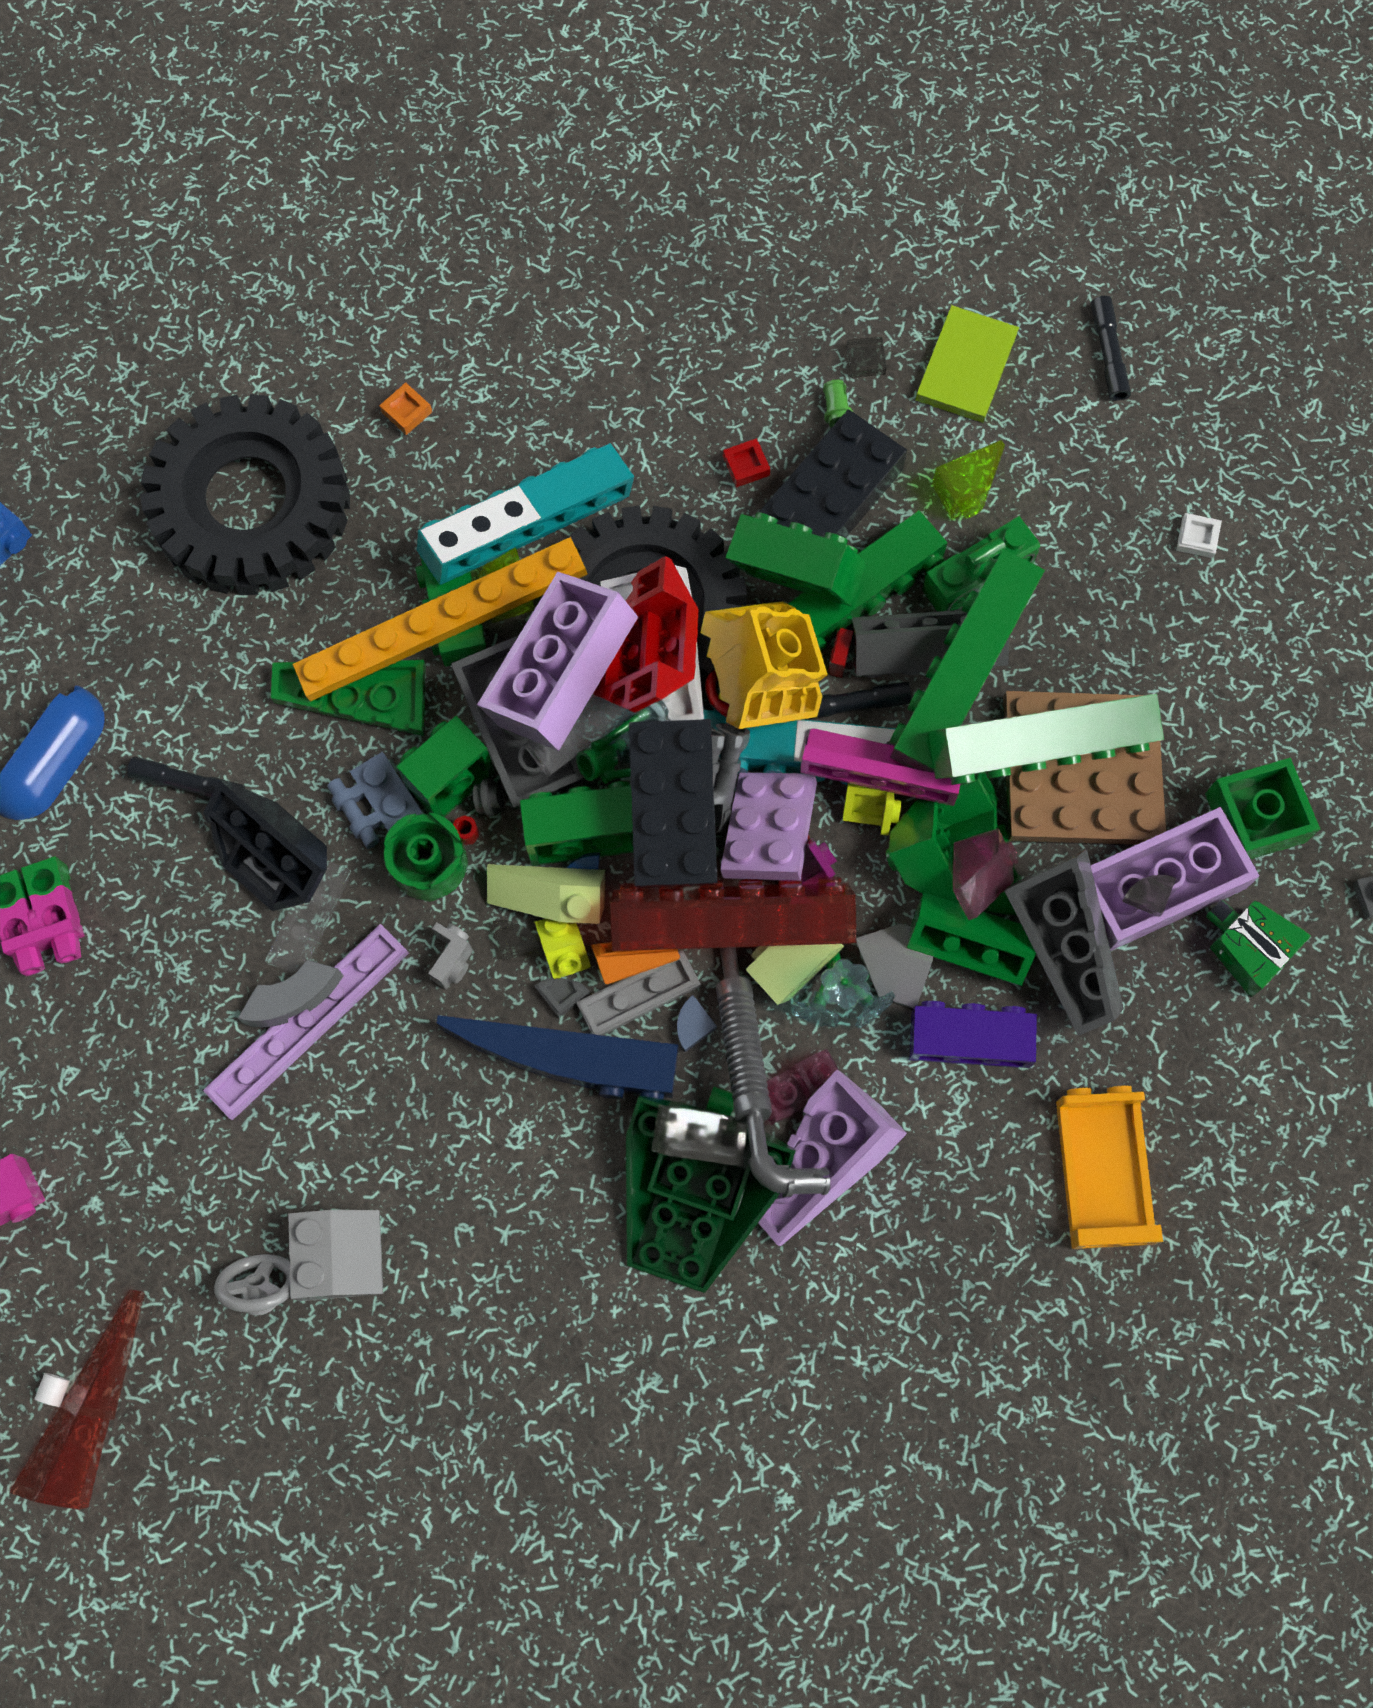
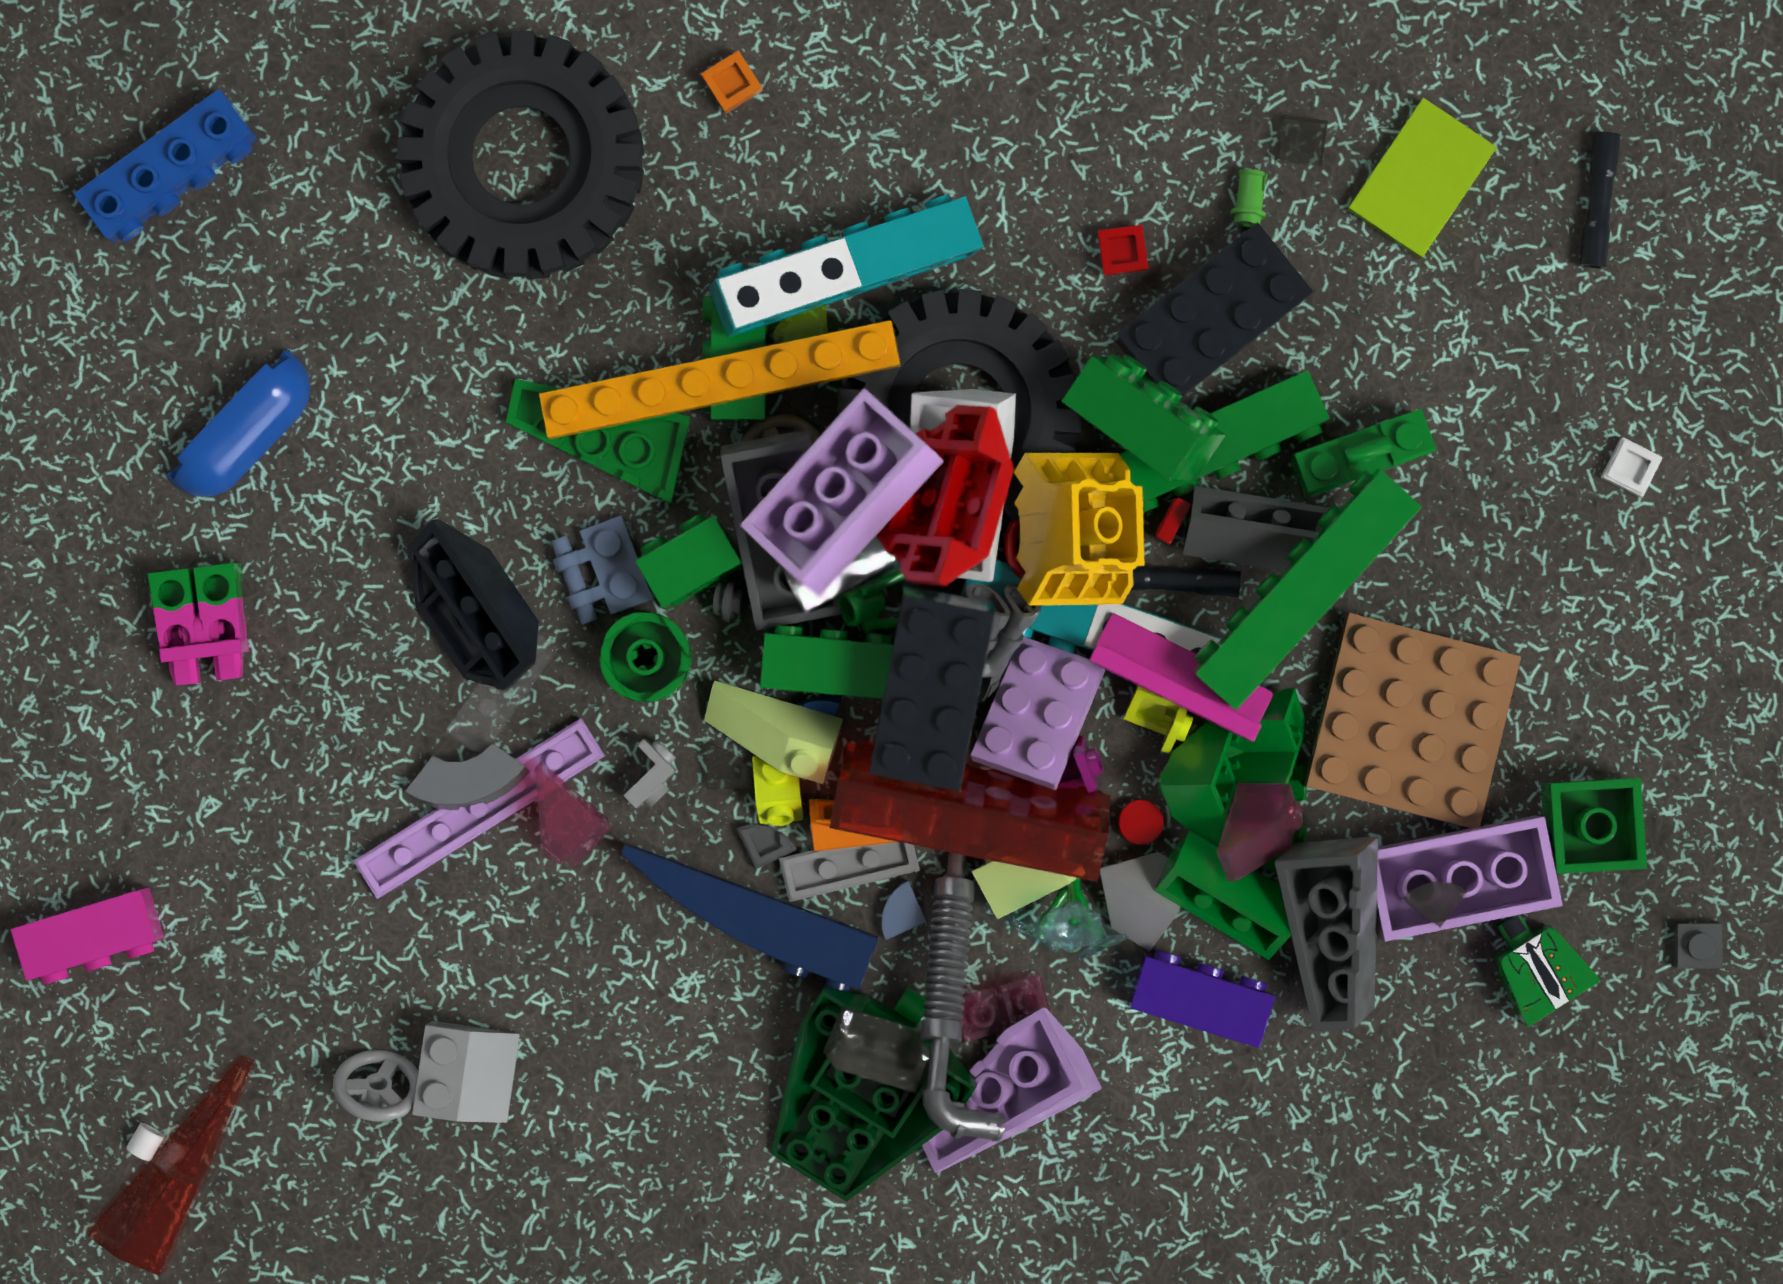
camera: 10 degrees right, 15 degrees up
(163, 775) = (369, 485): black piece -> none
(381, 1007) = (566, 819): none -> clear pink slope
(466, 821) = (708, 631): red piece -> none
(879, 901) = (1140, 822): none -> red tile
(968, 480) = (1379, 339): clear neon green slope -> none
(1044, 737) = (1370, 698): brick -> none
(1106, 1169) = (1305, 1175): light orange panel -> none

